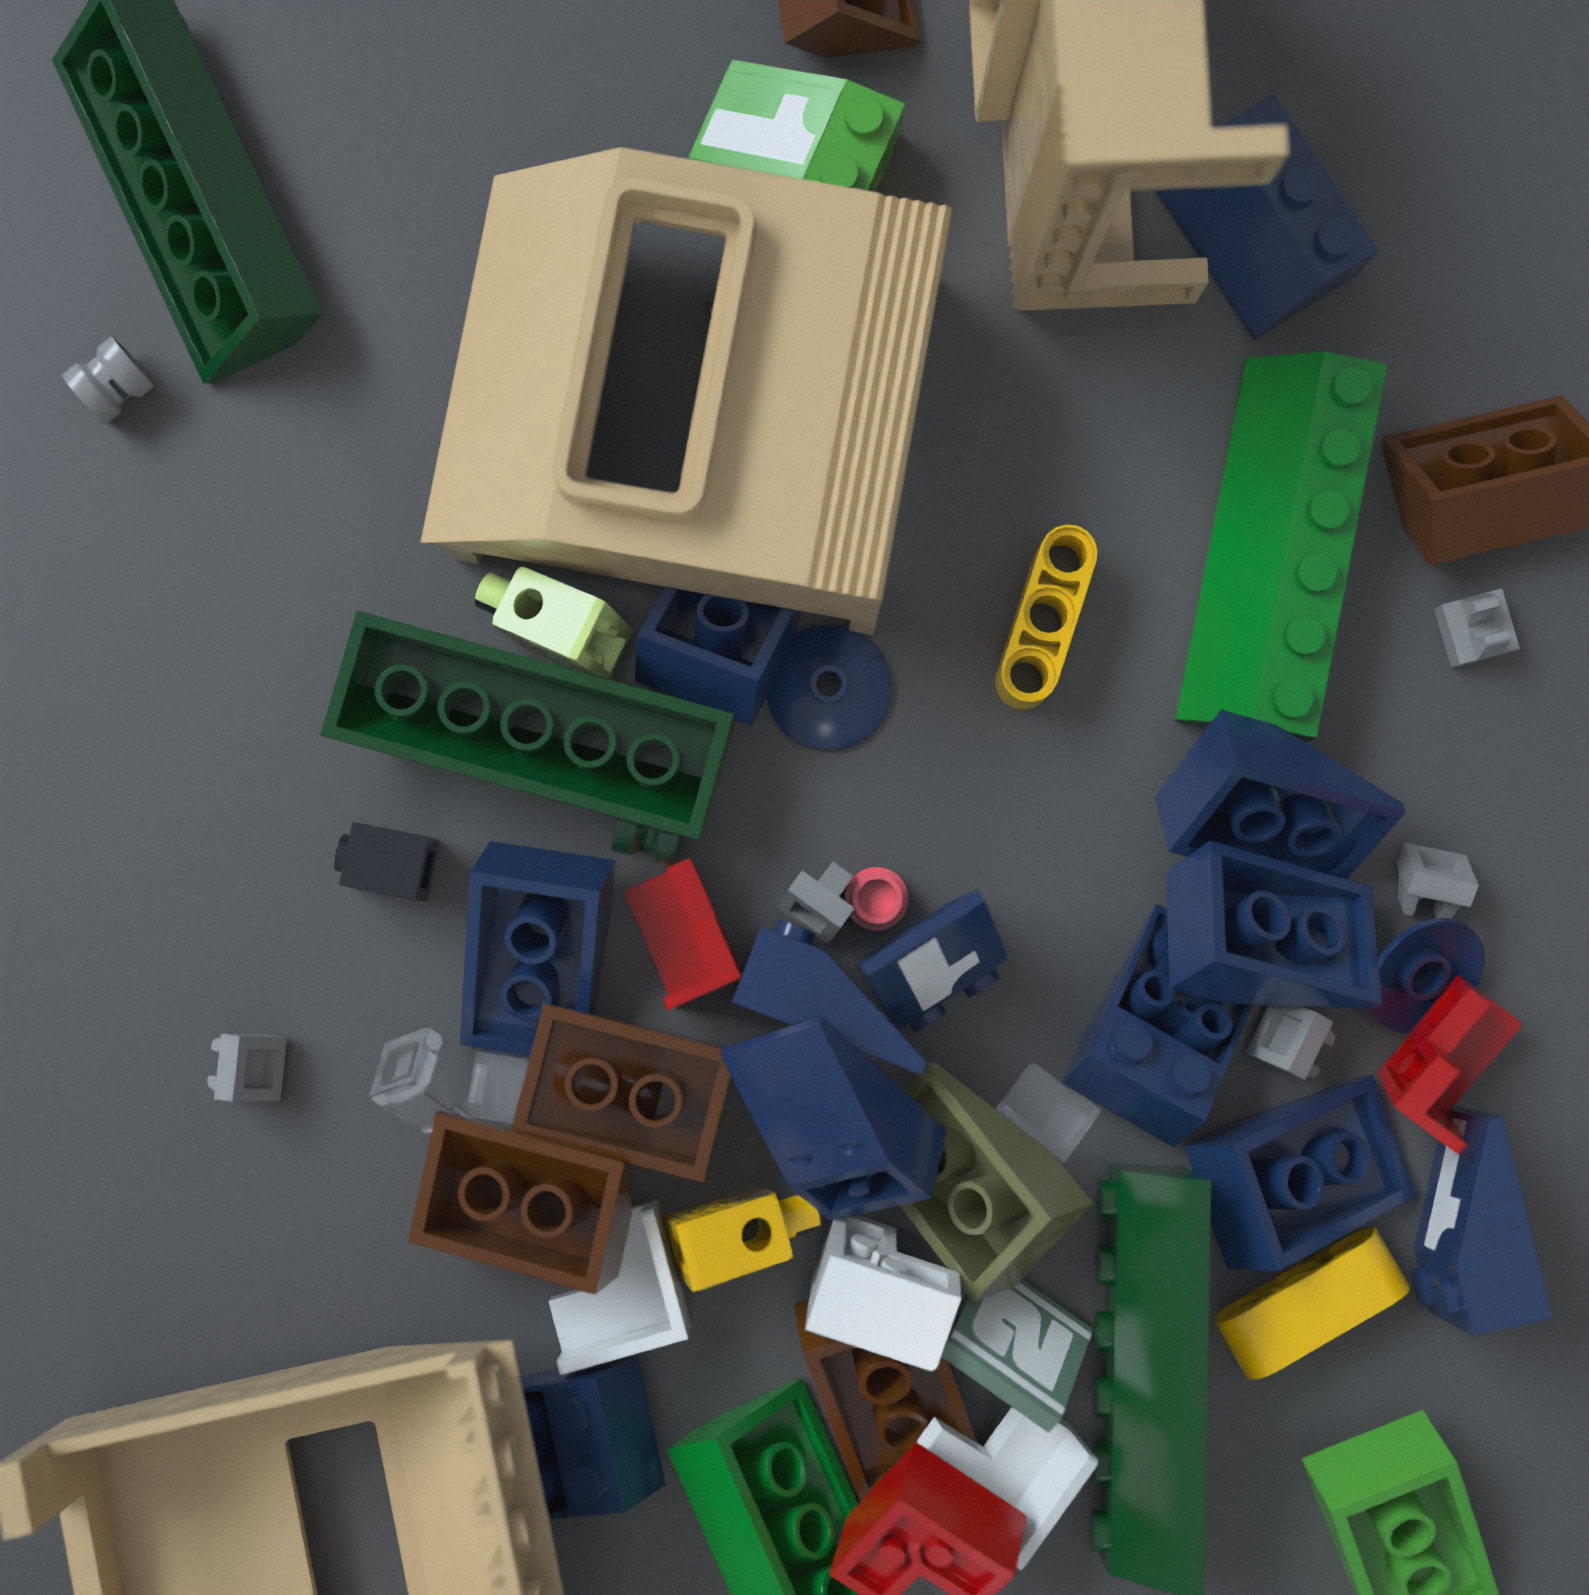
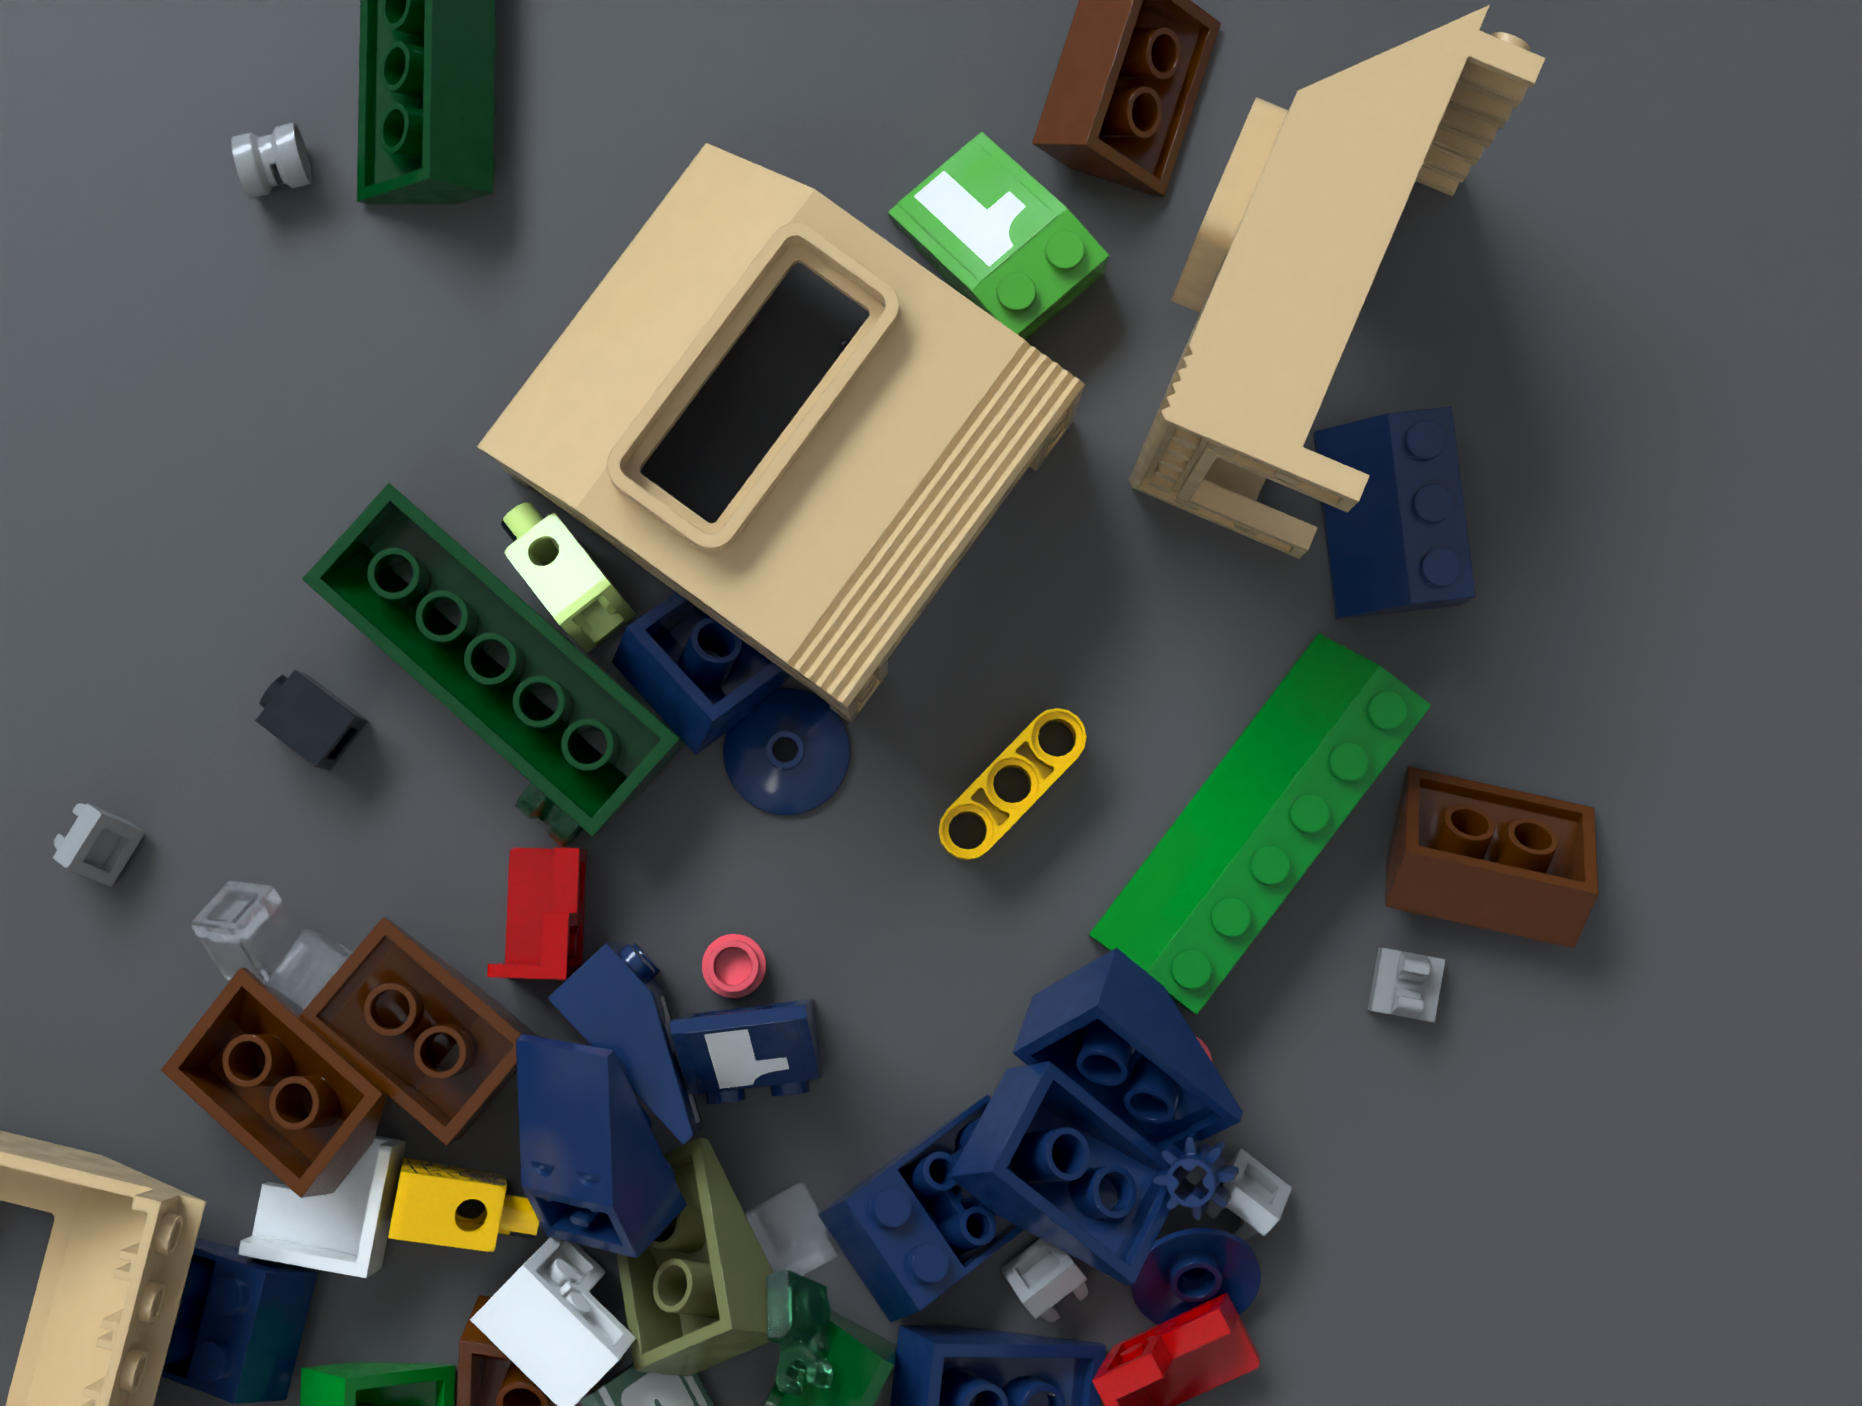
camera: 25 degrees right, 0 degrees up
(531, 941) = (404, 853): dark blue slope -> none
(818, 903) = (677, 944): light grey tile -> none
(1101, 1188) = (799, 1323): none -> clear green plate
(1396, 896) = (1197, 1195): none -> dark blue gear

